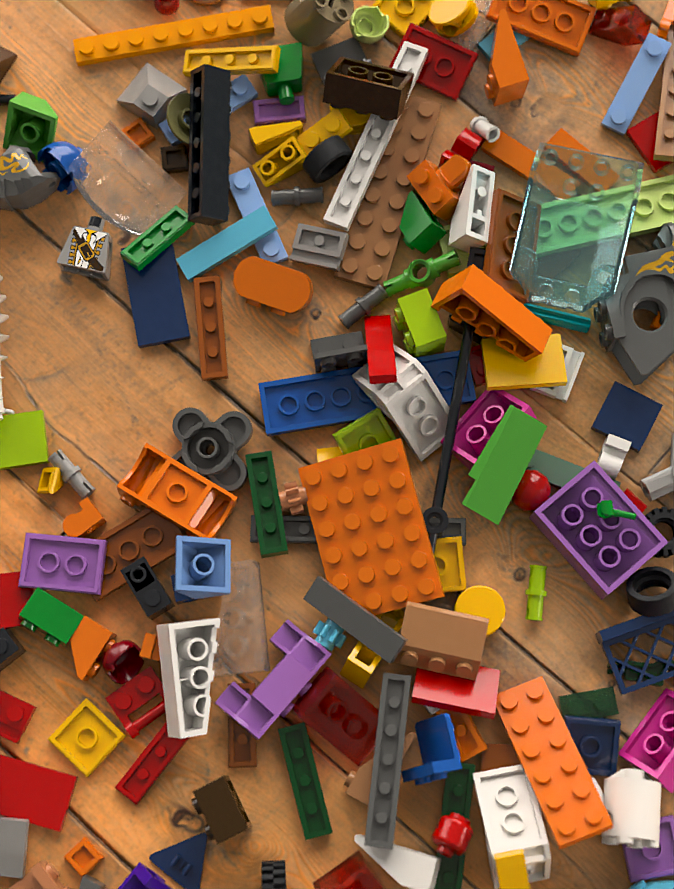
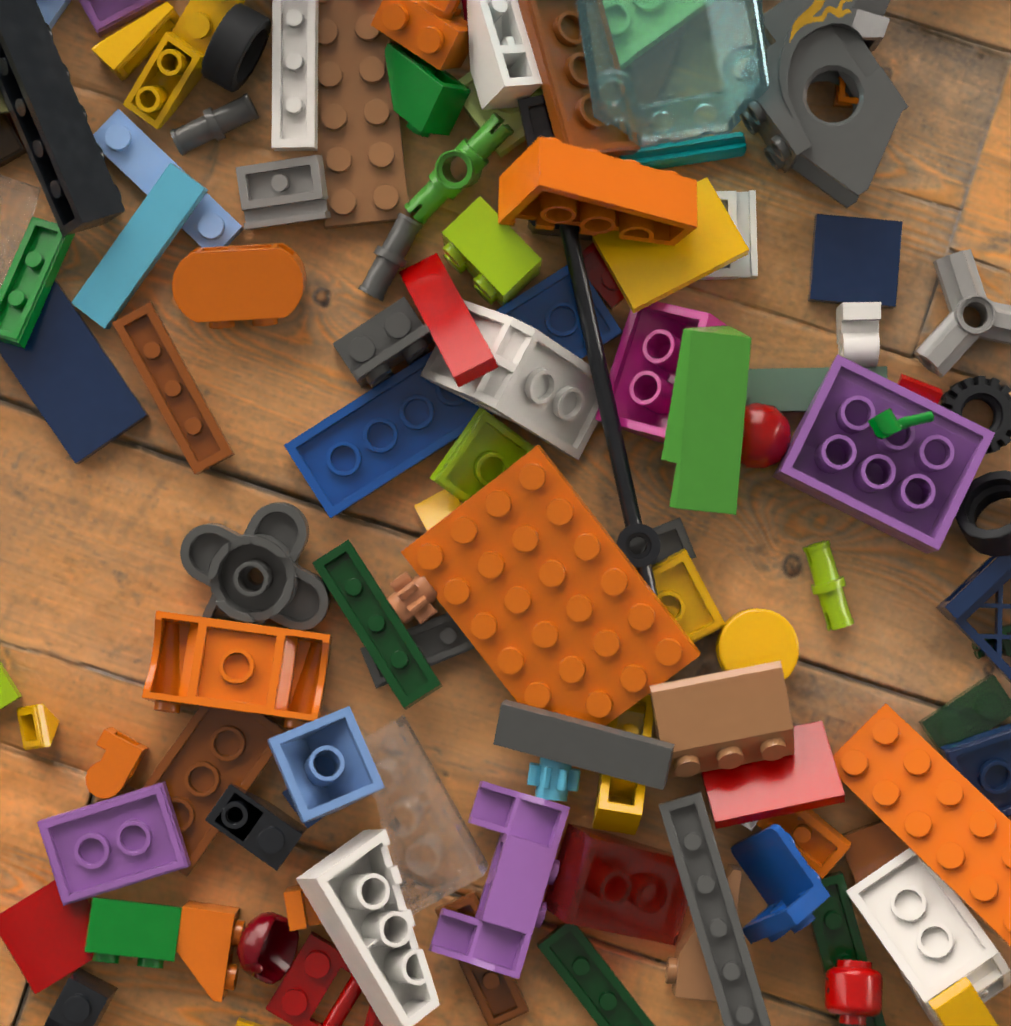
camera: 30 degrees left, 10 degrees up
(71, 474) = (64, 702): light grey pin -> none

